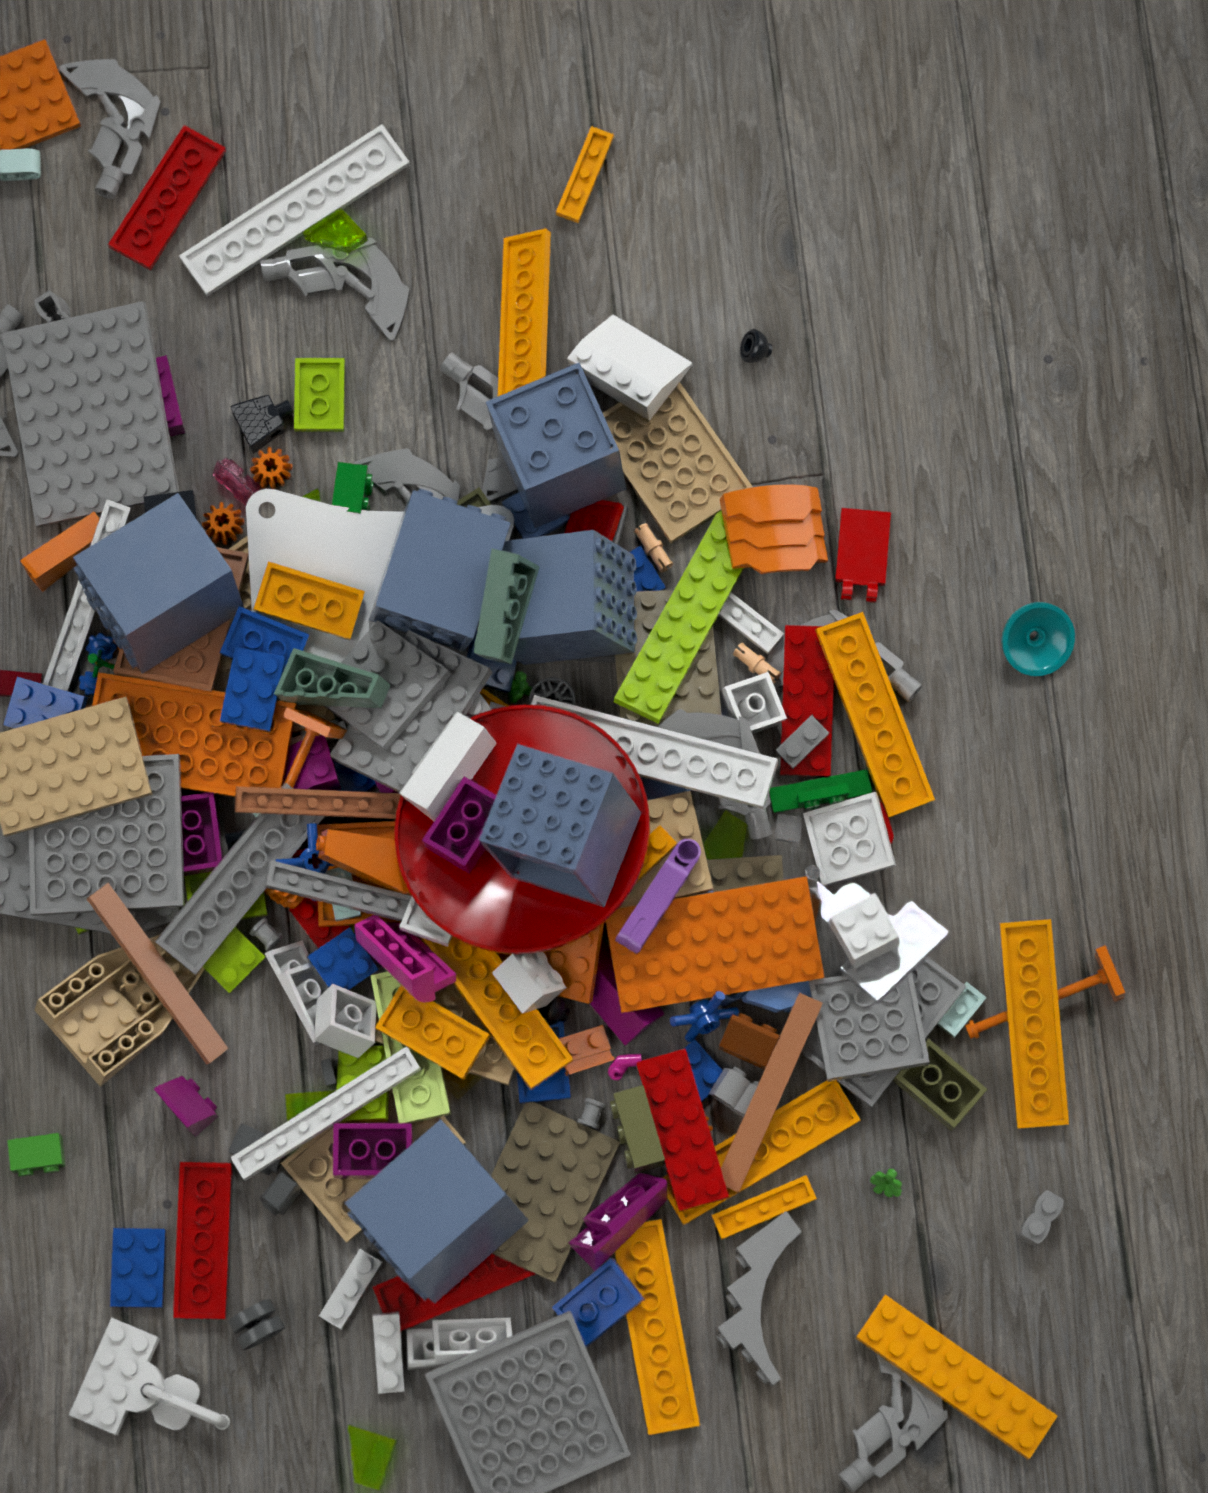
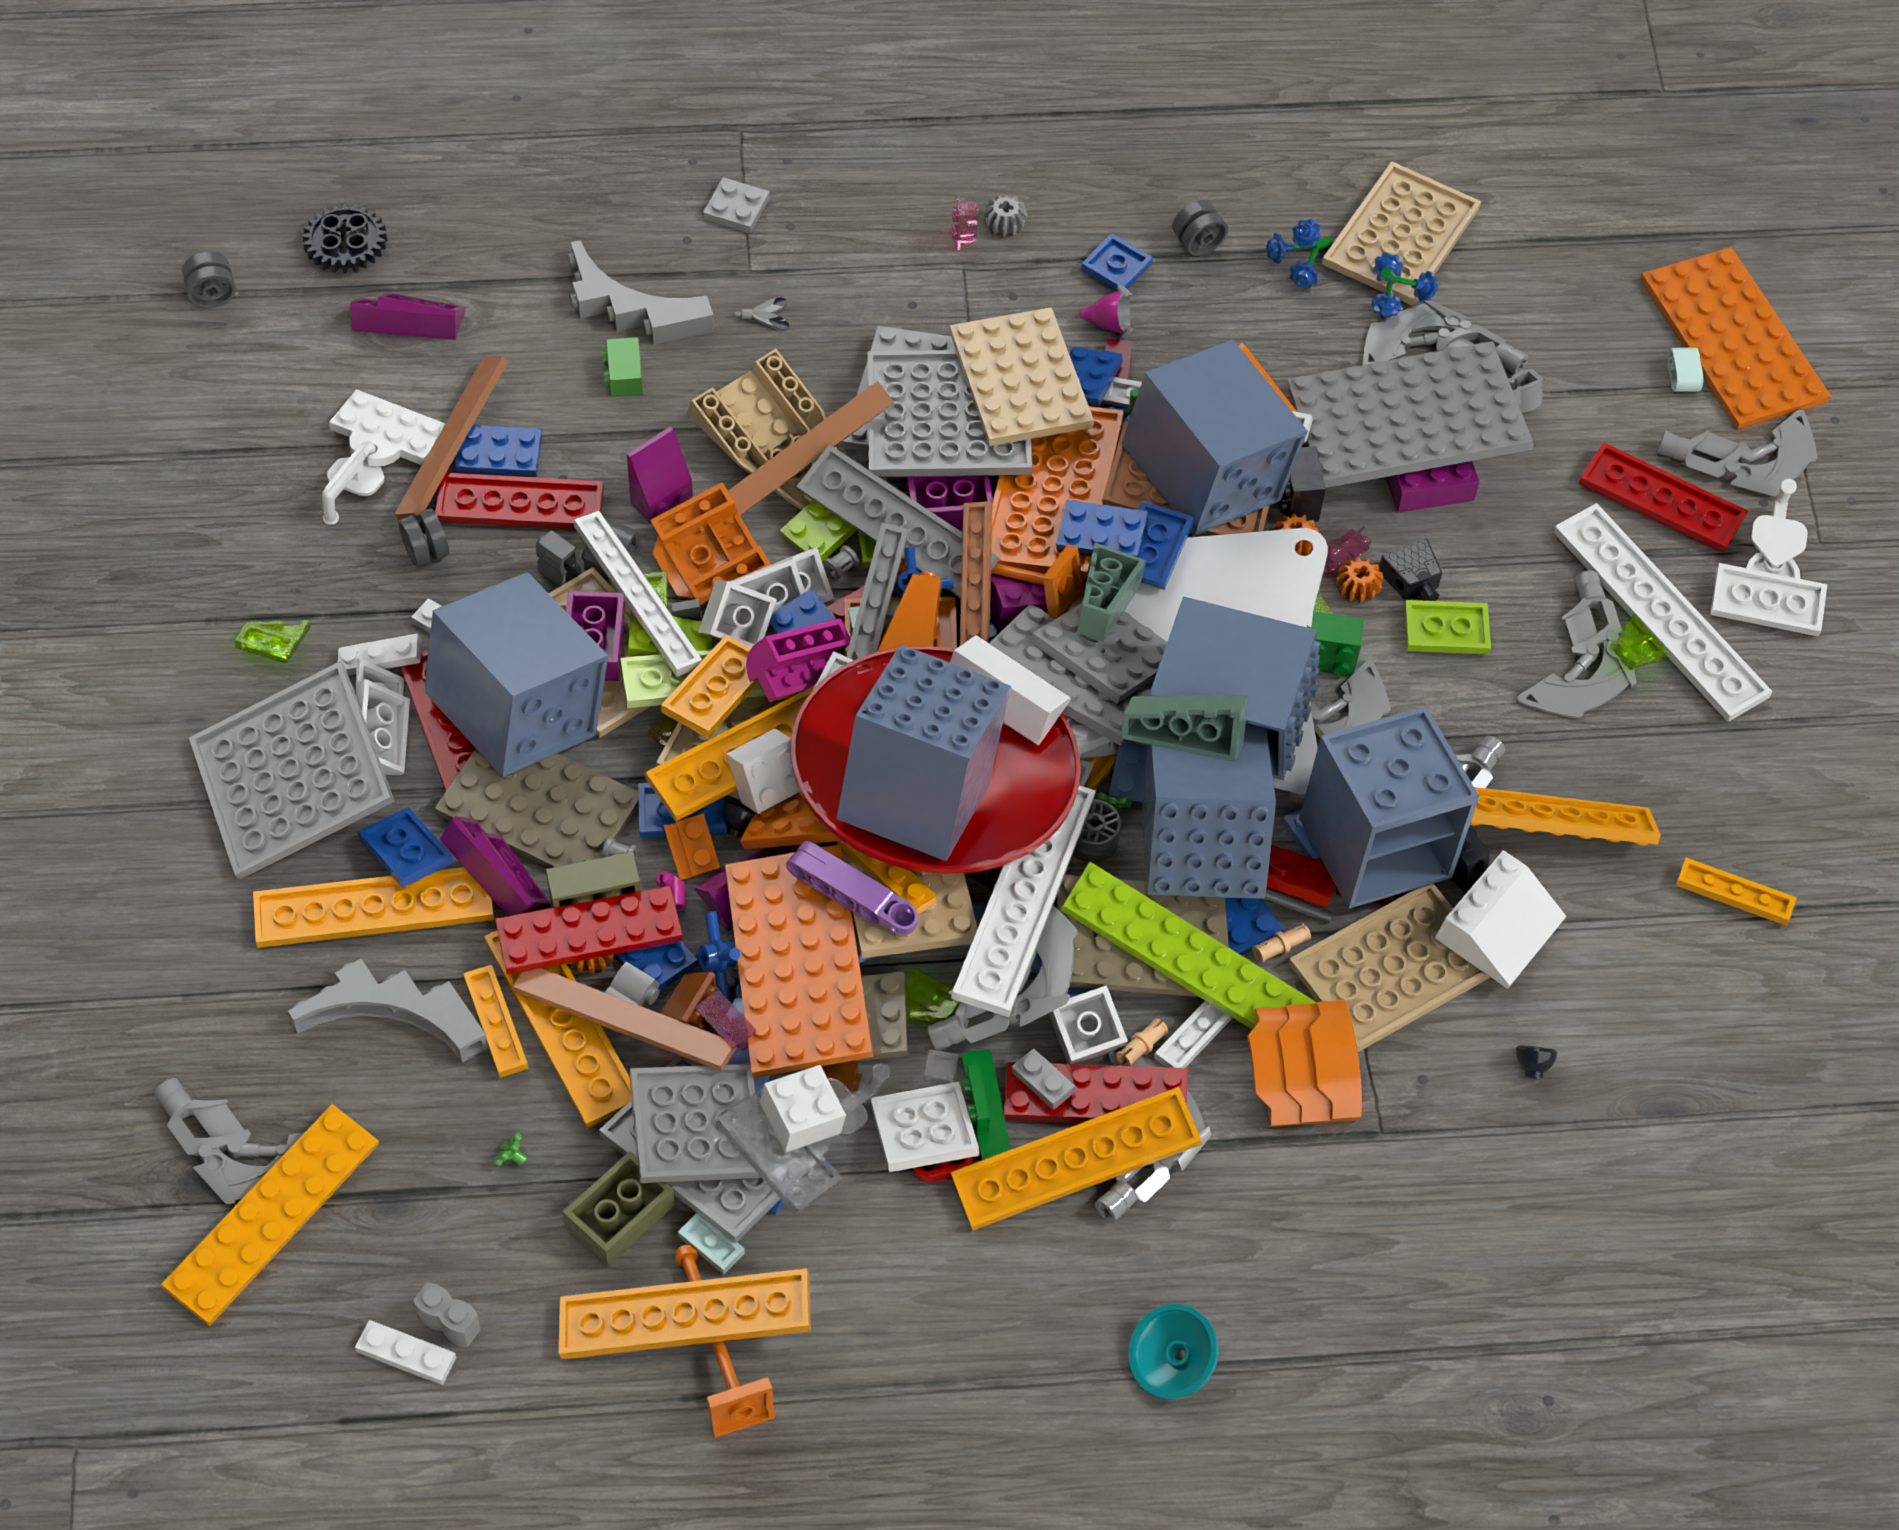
camera: 90 degrees right, 20 degrees down
(131, 1312) = (451, 437): none -> nougat tile
(260, 1055) = (704, 544): none -> orange slope
(276, 115) = (1763, 590): none -> white plate
(308, 600) = (1204, 572): light orange plate -> none
(778, 1001) = (726, 1020): none -> clear pink hinge
(862, 551) = (1283, 1167): red tile -> none
(1070, 1251) = (405, 1352): none -> white plate

